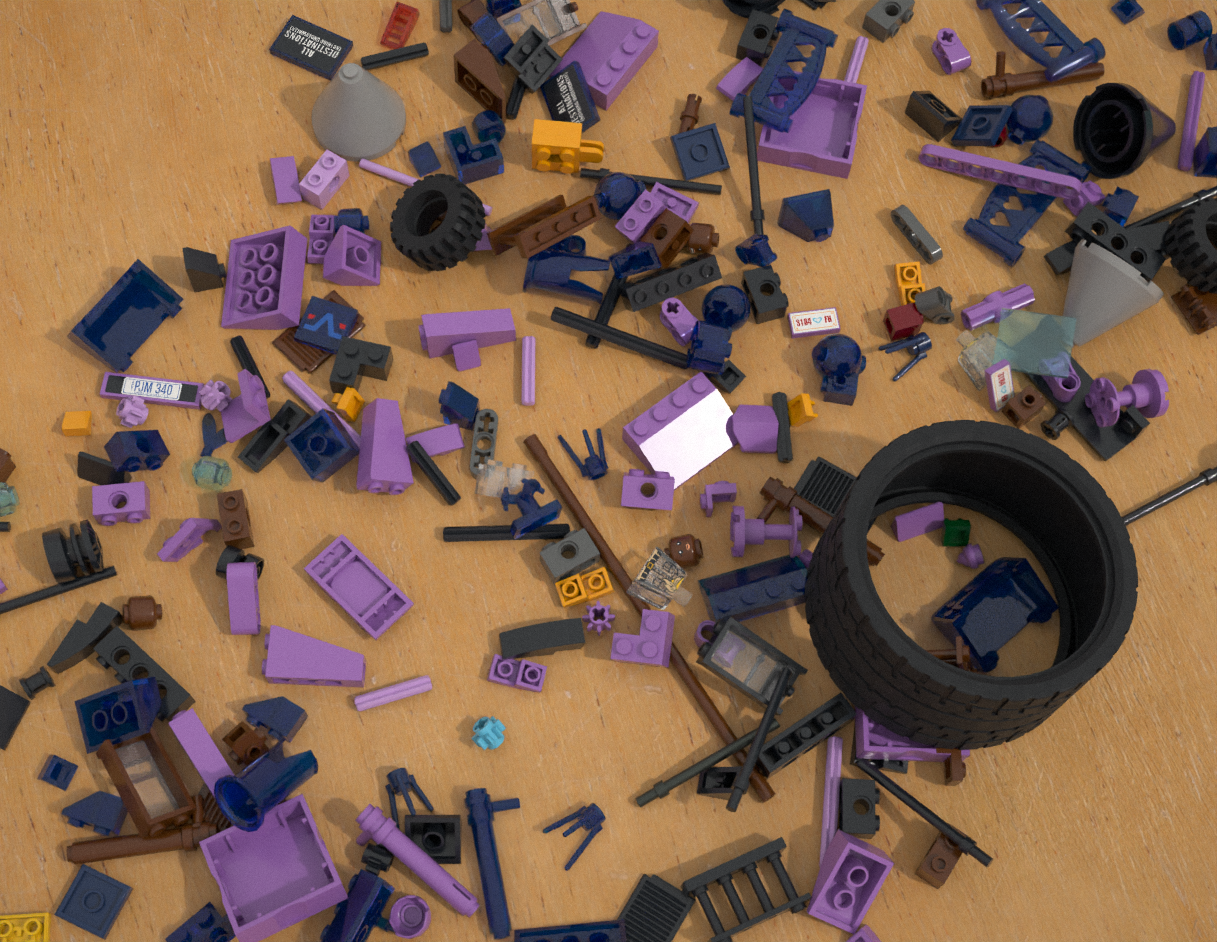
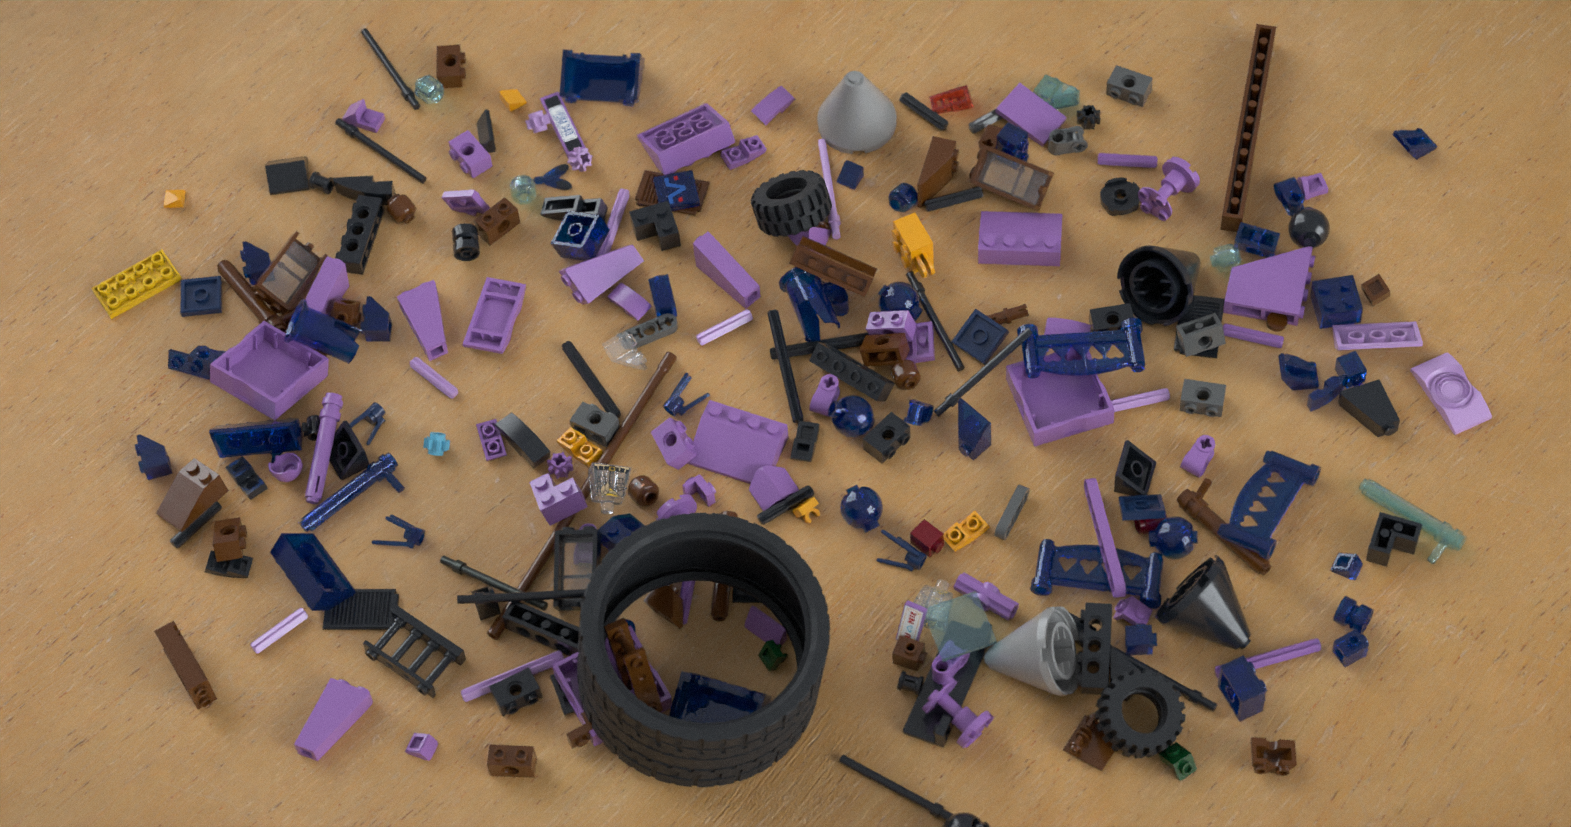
camera: 70 degrees right, 10 degrees down
(57, 772) = (271, 229): clear blue slope -> none
(68, 553) = (416, 146): black wheel -> none
(118, 712) = (323, 229): clear blue slope -> none
(137, 450) = (518, 140): clear blue brick -> none
(203, 269) = (666, 96): black slope -> none
(243, 598) = (442, 253): medium lavender beam -> none
(246, 359) = (616, 167): black axle -> none
(247, 410) = (581, 177): medium lavender bracket -> none
(311, 47) = (894, 60): black tile -> none
(324, 179) = (788, 125): lavender brick -> none
(349, 403) = (625, 236): light orange tile -> none
(352, 218) = (764, 160): clear blue head -> none
(353, 259) = (737, 177): medium lavender slope -> none
(433, 473) = (604, 311): black axle -> none
(466, 355) = (710, 283): medium lavender slope -> none
(469, 160) = (866, 199): clear blue brick -> none
(493, 37) = (967, 153): clear blue slope -> none
(532, 59) = (976, 189): black slope -> none
(532, 514) = (609, 381): clear blue piece -> none
(570, 97) = (960, 232): black tile -> none
(635, 259) = (850, 337): clear blue slope -> none
(709, 347) = (807, 417): clear blue brick -> none
(813, 322) = (888, 483): tile -> none
(840, 393) = (841, 527): clear blue brick -> none
(848, 881) = (457, 708): medium lavender slope -> none
(935, 305) = (954, 554): dark grey piece -> none
(965, 844) = (519, 757): black bar -> none
(971, 556) = (760, 676): medium lavender plate -> none

